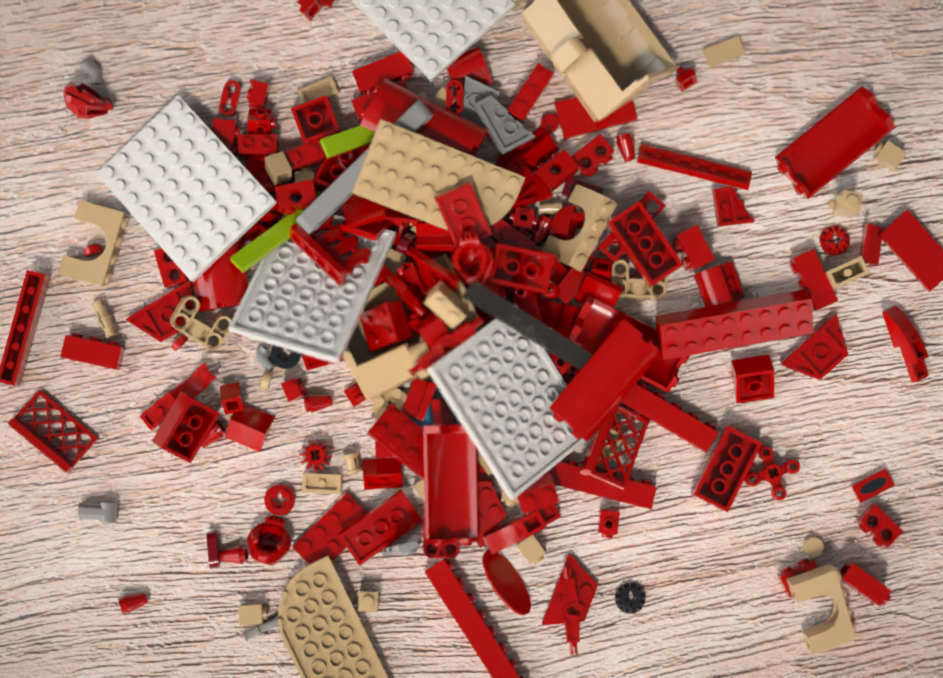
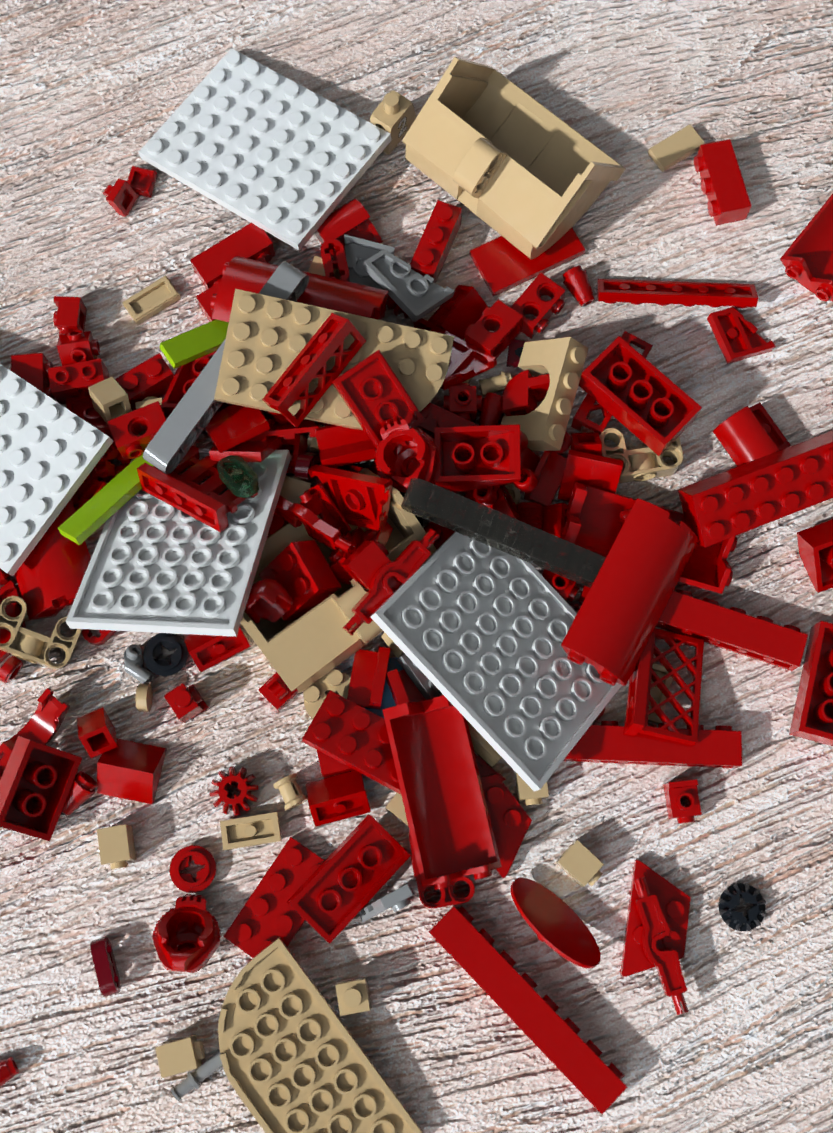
camera: 10 degrees left, 10 degrees down
(226, 97) = (27, 330): red beam -> none
(232, 475) = (116, 846): none -> tan brick
(234, 555) = (138, 968): red cone -> none
(315, 119) = (148, 326): red brick -> none
(317, 402) = (222, 714): red cone -> none
(358, 251) = (238, 476): none -> clear green plate
(363, 339) = (267, 601): none -> red hair
(422, 184) = (311, 364): none -> red fence
(446, 304) = (380, 522): tan brick -> none
(520, 528) = (558, 834): red slope -> none
(538, 495) = (574, 777): red slope -> none
(550, 123) = (470, 276): red tile -> none
(685, 78) = (635, 187): red tile -> none
(692, 249) = (710, 390): red brick -> none
(749, 88) = (722, 182): none -> red brick

